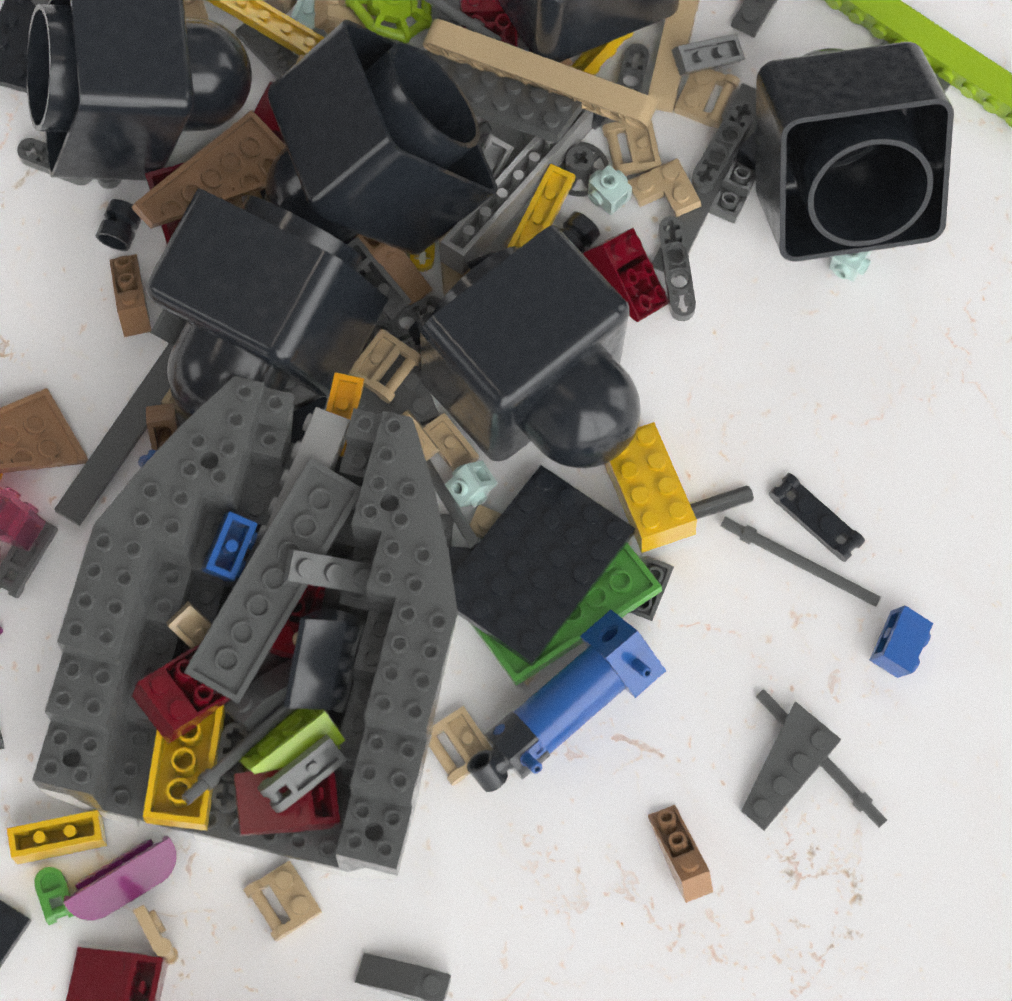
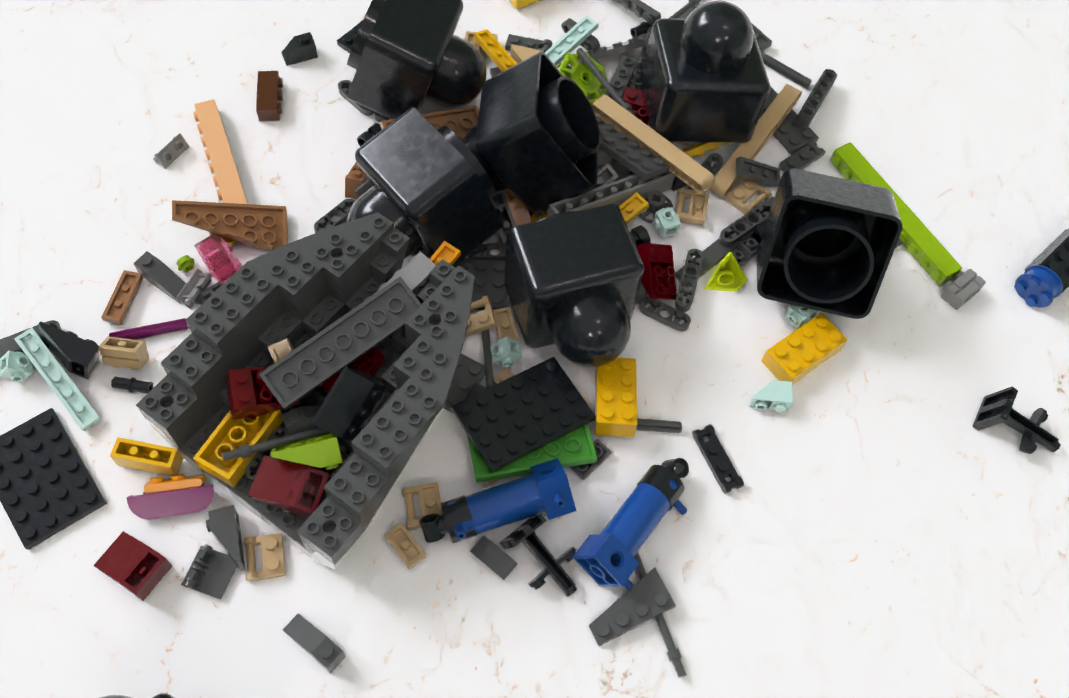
camera: 20 degrees right, 10 degrees down
(51, 884) = (128, 485): bright green plate -> none
(114, 854) = (177, 481): none -> light orange hinge
(126, 354) = (338, 210): none -> dark grey beam
(153, 928) = (170, 542): tan plate -> none
(219, 891) = (226, 530): none -> dark grey slope
(223, 949) = (210, 572): none -> dark grey hinge
(229, 547) = (327, 312): blue brick -> none
(302, 774) = (303, 470): plate -> none
(327, 571) = (375, 347): dark grey plate -> none
(378, 359) = (483, 261): tan plate -> none
(460, 808) = (405, 545): none -> tan plate
(582, 775) = (493, 557): none -> dark grey slope
(612, 728) = (526, 534): none -> black piece
(652, 341) = (679, 315): none -> dark grey beam
(666, 181) = (702, 231): tan plate -> none
(681, 854) = (535, 637): medium nougat slope -> none
(728, 239) = (727, 276): none -> neon yellow slope
(734, 708) = (611, 554): none -> blue piece
(749, 535) = (669, 452): dark grey bar -> none
(859, 396) = (774, 396): none -> light aqua slope
(874, 312) = (804, 349): none -> yellow brick
(901, 642) = (743, 558): blue brick -> none

